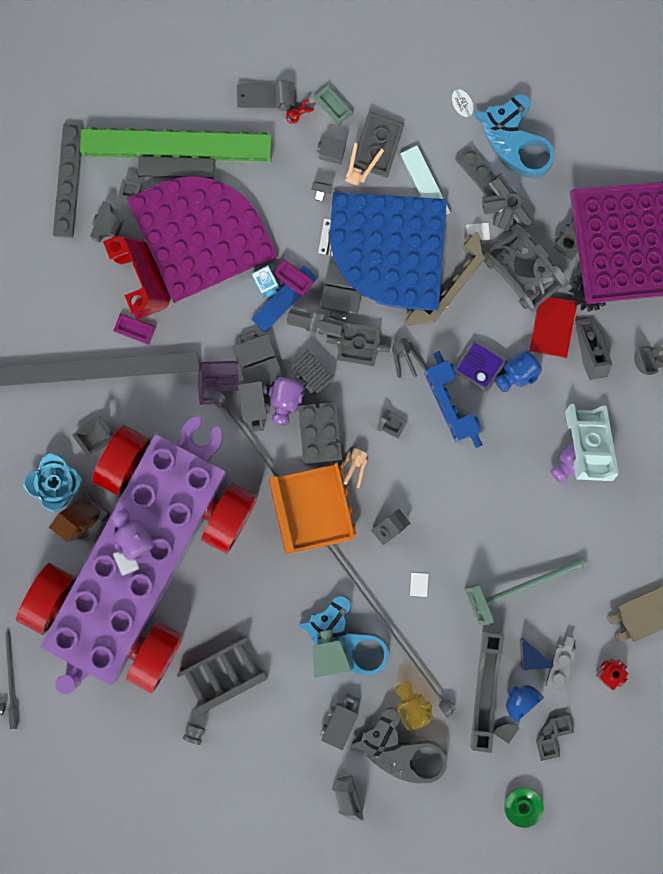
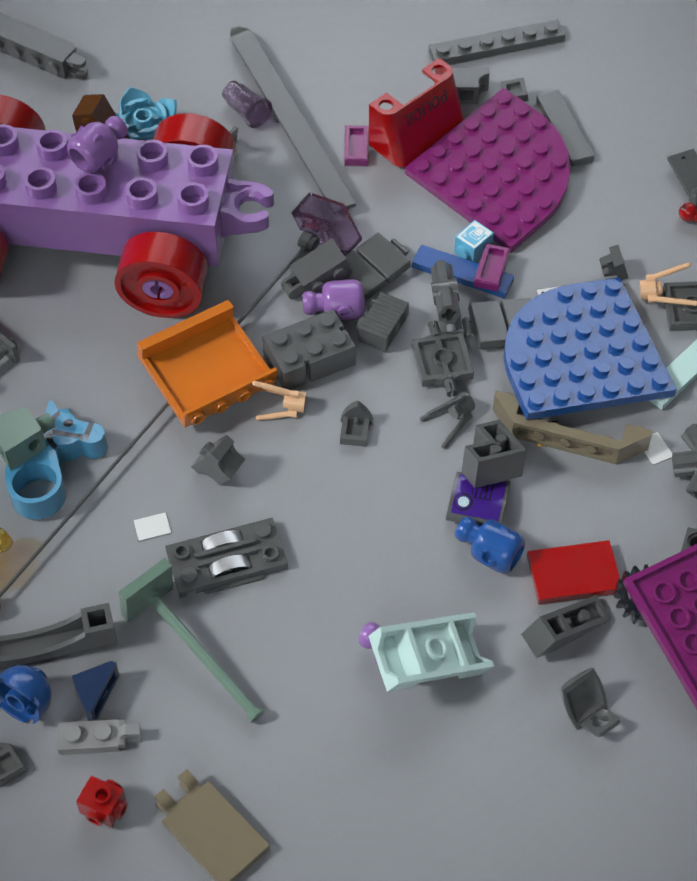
camera: 70 degrees right, 30 degrees down
(64, 398) = (250, 106): none -> clear purple plant
(125, 565) = (61, 160): white sticker -> none
(183, 144) = (607, 143): bright green brick -> none
(331, 150) = (668, 255): dark grey brick -> none
(438, 377) = (435, 448): blue brick -> none
(460, 341) = (493, 455): none -> dark grey brick
(462, 544) = (227, 558): none -> dark grey piece
(521, 240) = (631, 473): dark grey fence -> none

